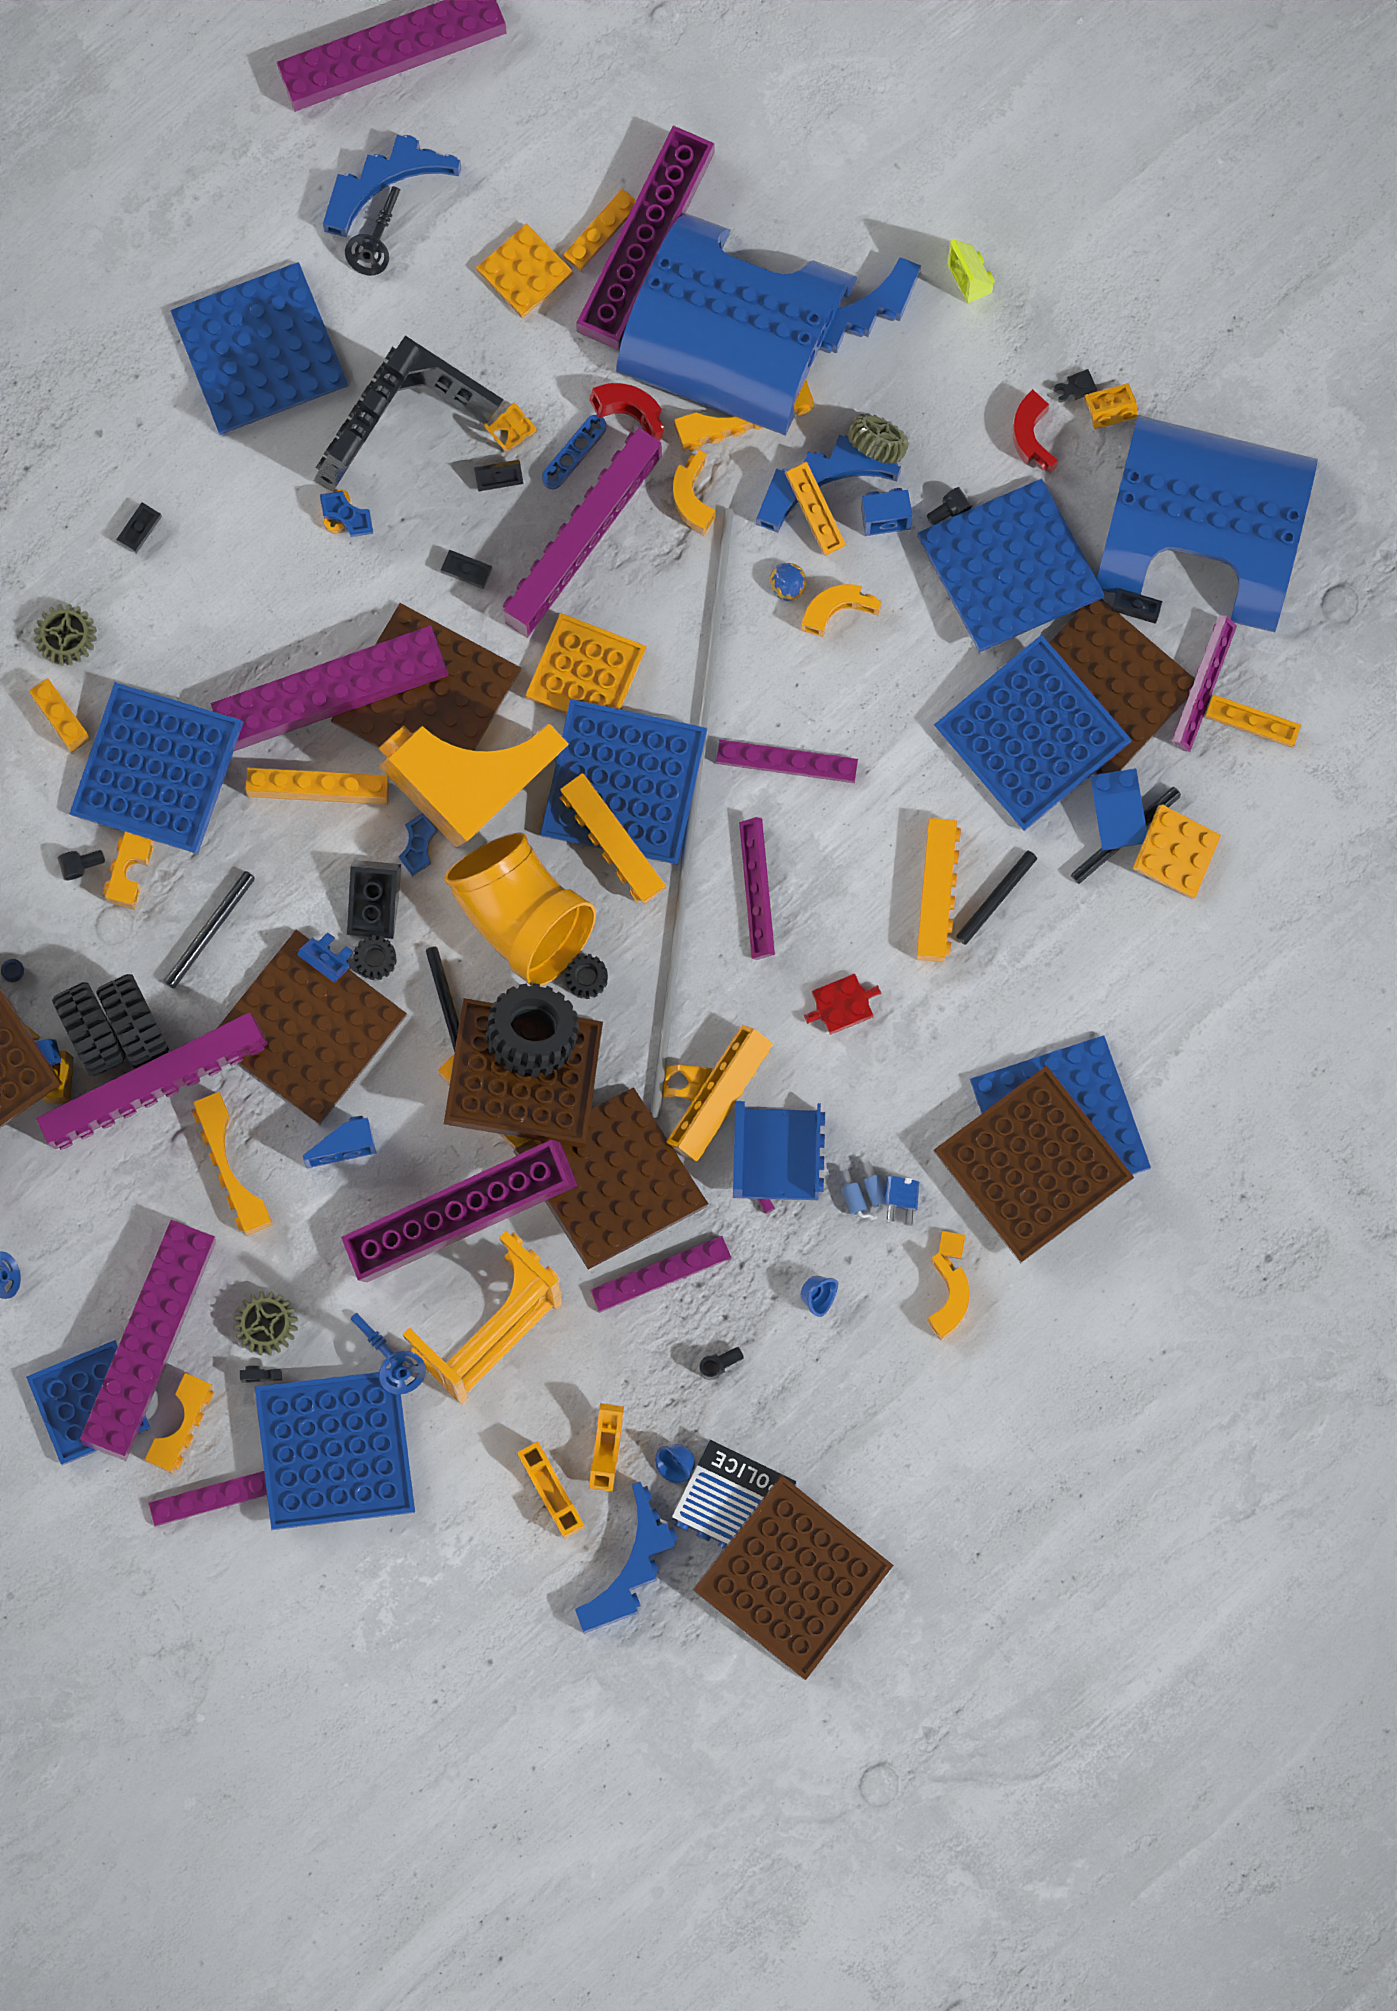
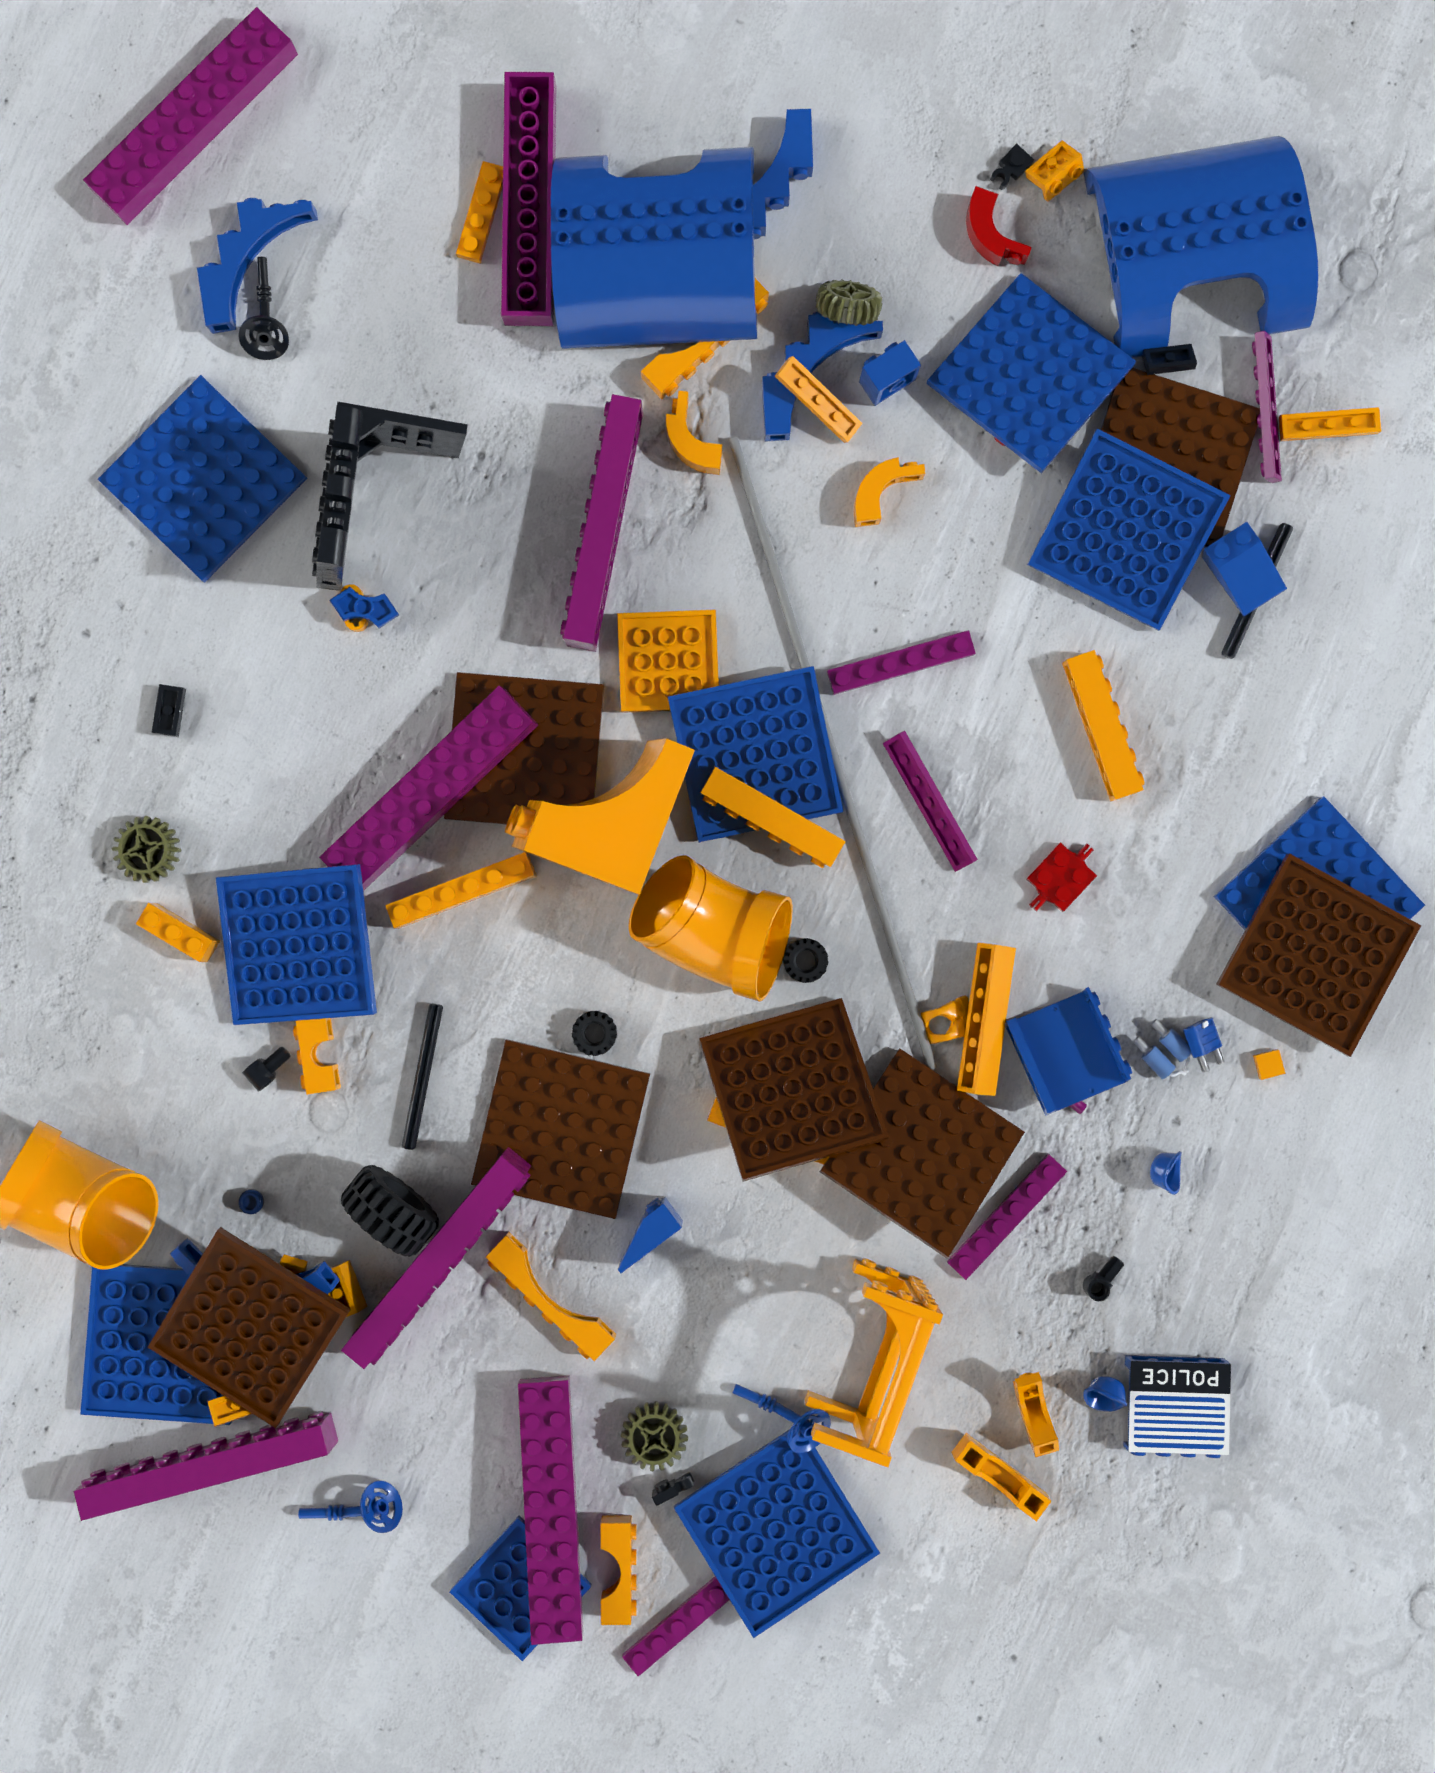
camera: 25 degrees left, 10 degrees up
(88, 1029) = (344, 1242): black tyre -> none
(324, 960) = (548, 1061): blue plate -> none
(373, 898) = (566, 976): black slope -> none
(415, 855) = (586, 914): blue tile -> none
(443, 993) = (677, 1039): black axle -> none
(459, 1211) = (796, 1255): magenta brick -> none
(466, 569) = (506, 610): black plate -> none
(498, 475) = (494, 503): black plate -> none
(515, 423) = (488, 444): light orange piece -> none
(524, 270) = (425, 286): light orange plate -> none
(537, 1004) = (790, 1014): black tyre -> none
(576, 453) = (559, 447): blue beam -> none
(628, 400) = (587, 372): red arch -> none
(650, 1540) = (1110, 1549): blue arch -> none
(788, 581) = (822, 483): blue hair -> none
(793, 1577) = (1269, 1458): reddish brown plate -> none
(953, 504) = (947, 337): black axle -> none
(953, 1312) = (1302, 1120): light orange arch -> none
(969, 271) = (859, 95): neon yellow slope -> none
(996, 897) = (1161, 707): black axle -> none
(1176, 851) = (1316, 586): light orange plate -> none

